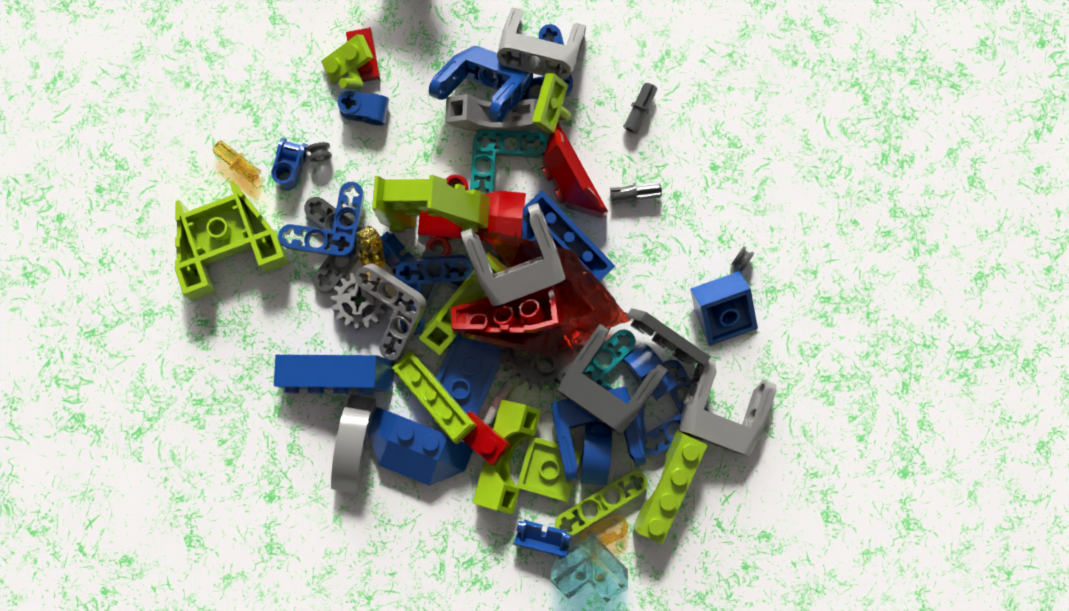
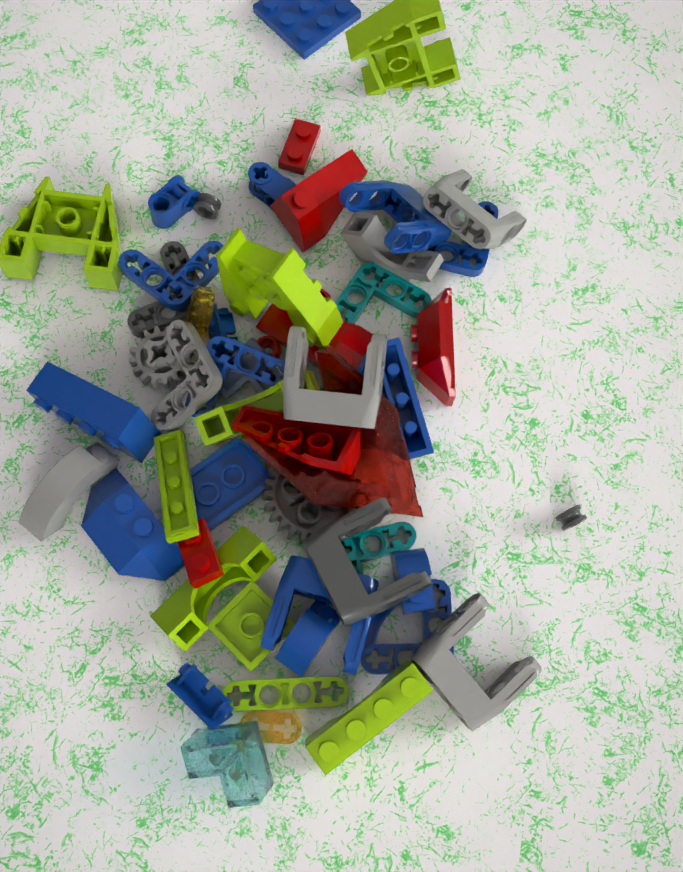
camera: 25 degrees right, 10 degrees down
(236, 161) = (126, 177): clear yellow axle -> none
(346, 61) = (278, 140): lime plate -> none
(407, 101) = (314, 203): none -> red wedge
(503, 394) = (250, 523): light grey piece -> none
(550, 102) = (448, 268): lime plate -> none
(635, 192) = (492, 396): dark grey axle -> none
(640, 108) = (540, 320): dark grey axle -> none
(666, 337) = (450, 552): dark grey plate -> none
(724, 308) = (527, 558): blue slope -> none

